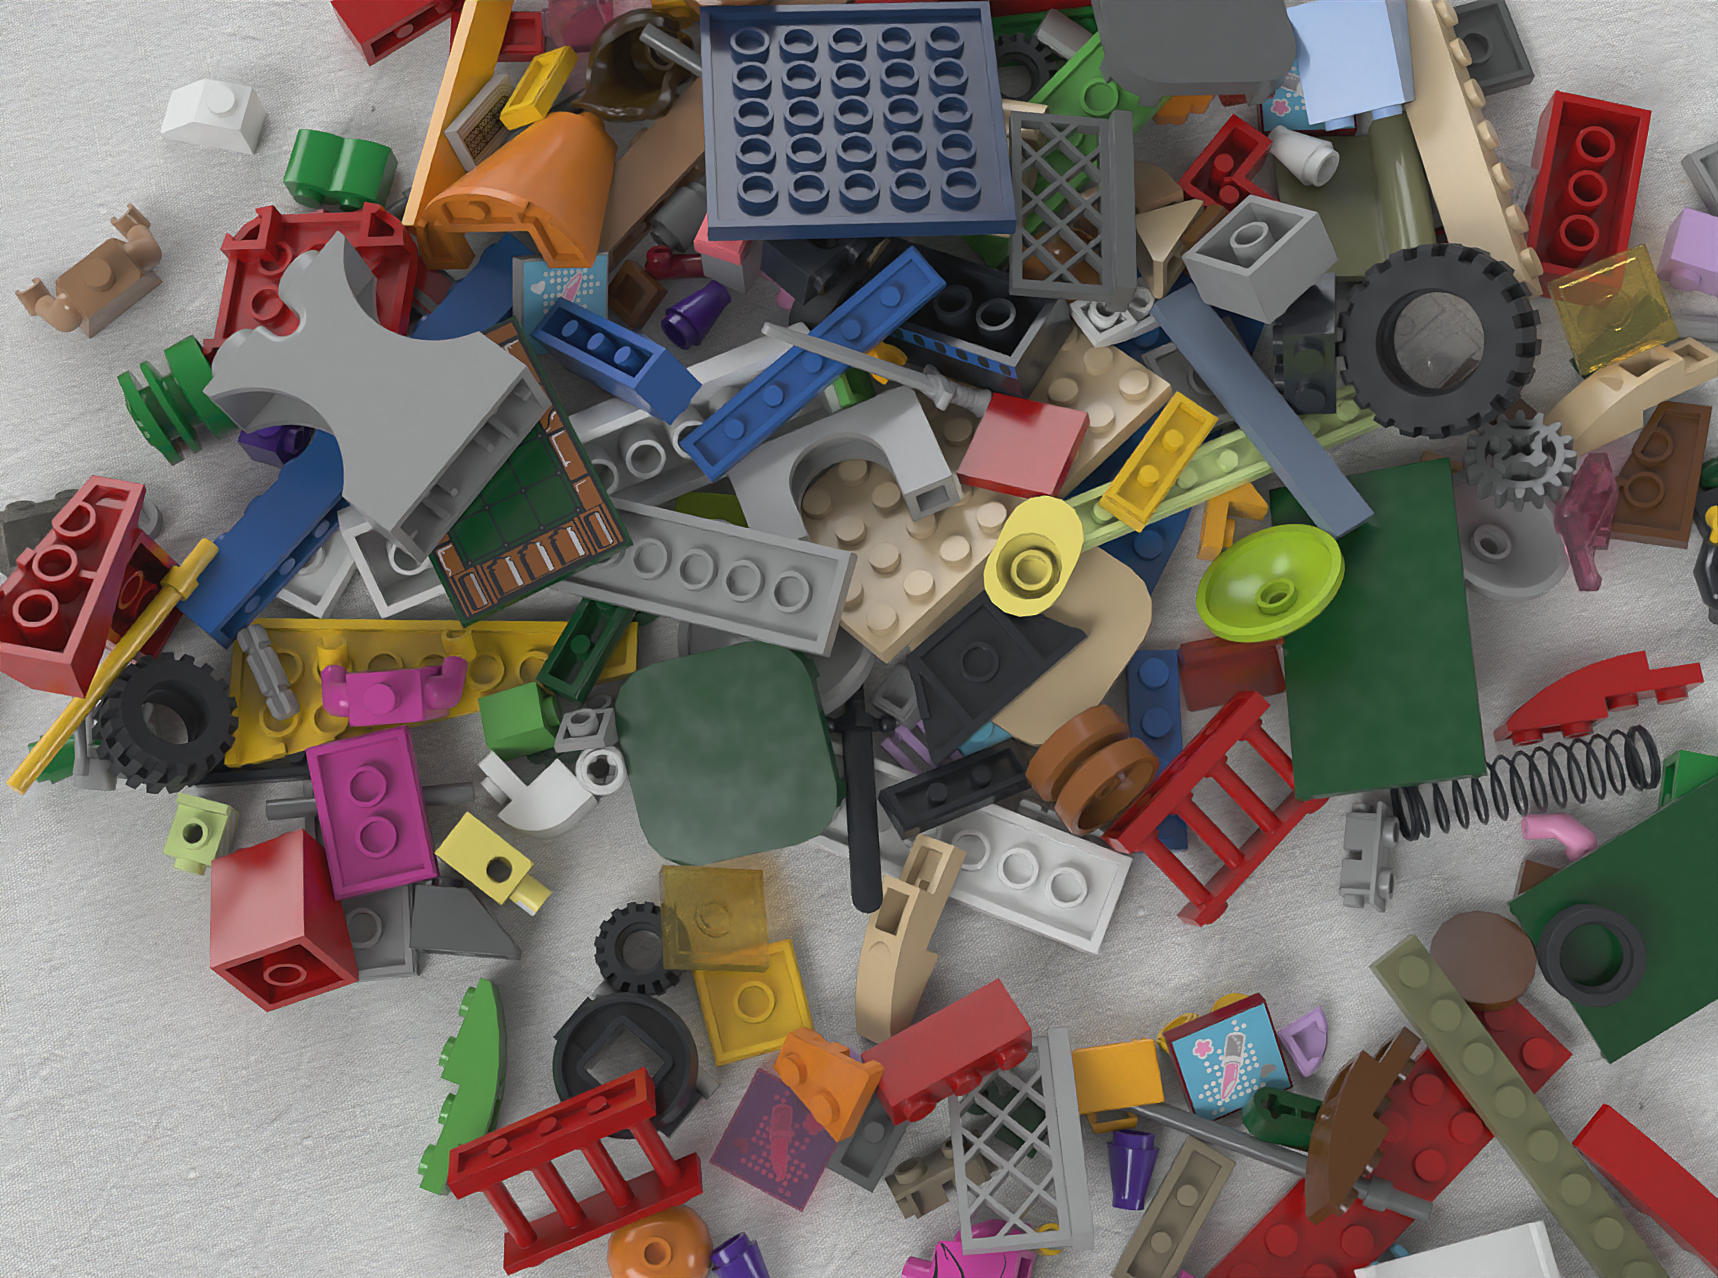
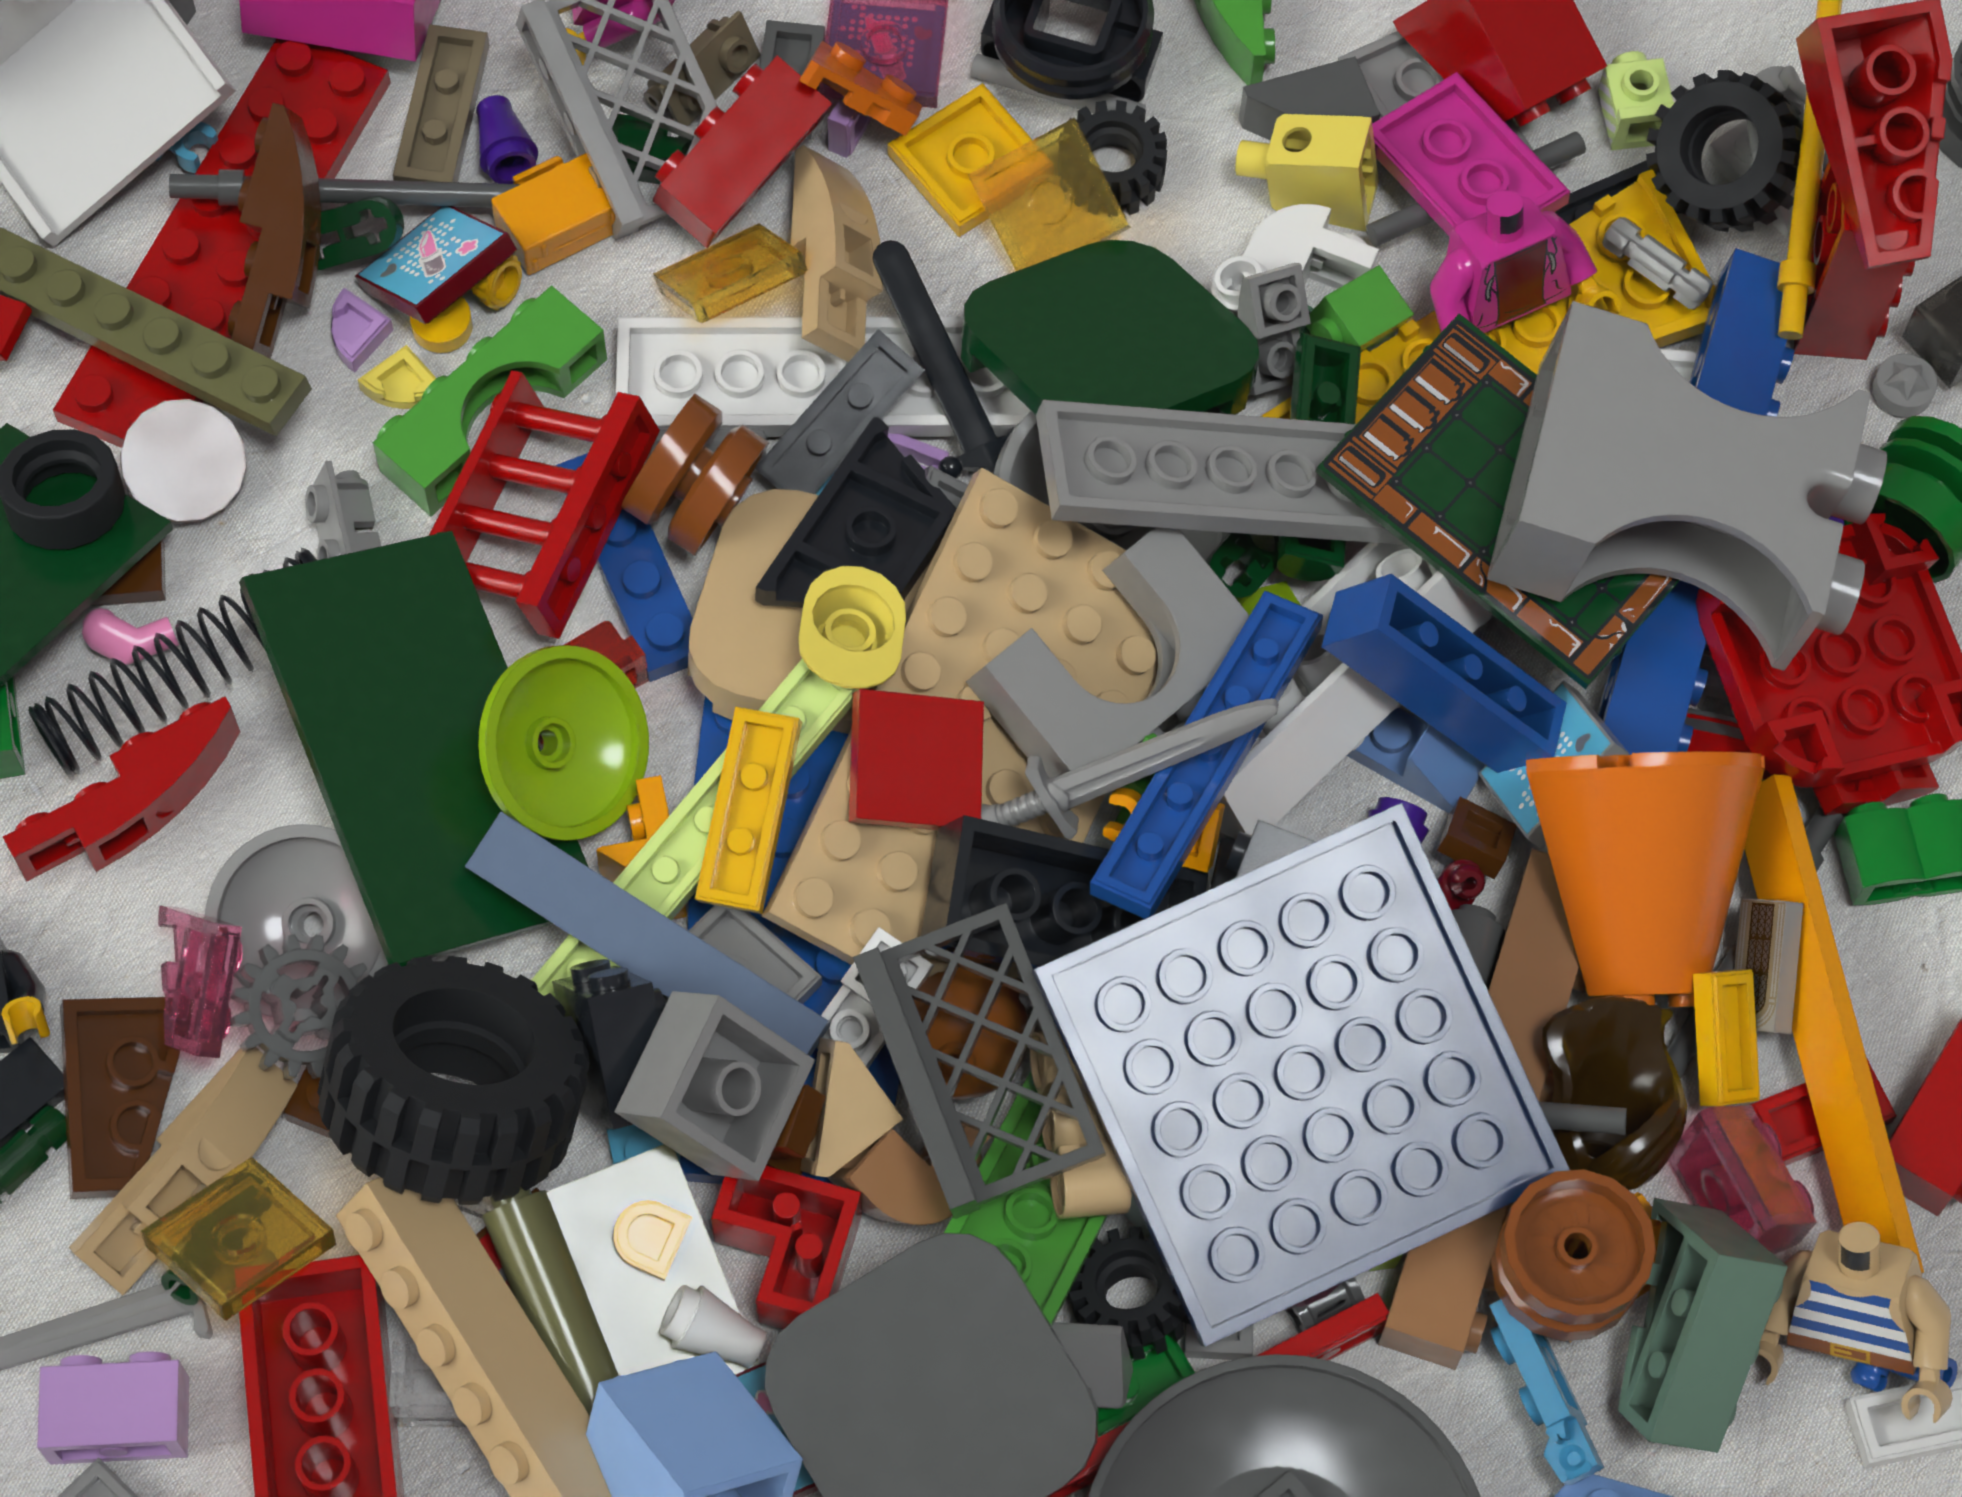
camera: 155 degrees right, 10 degrees down
(994, 944) = (730, 273): none -> clear yellow tile
(1280, 897) = (429, 445): none -> bright green arch
(1282, 977) = (397, 380): none -> light yellow tile
(1334, 217) = (650, 1236): none -> tile

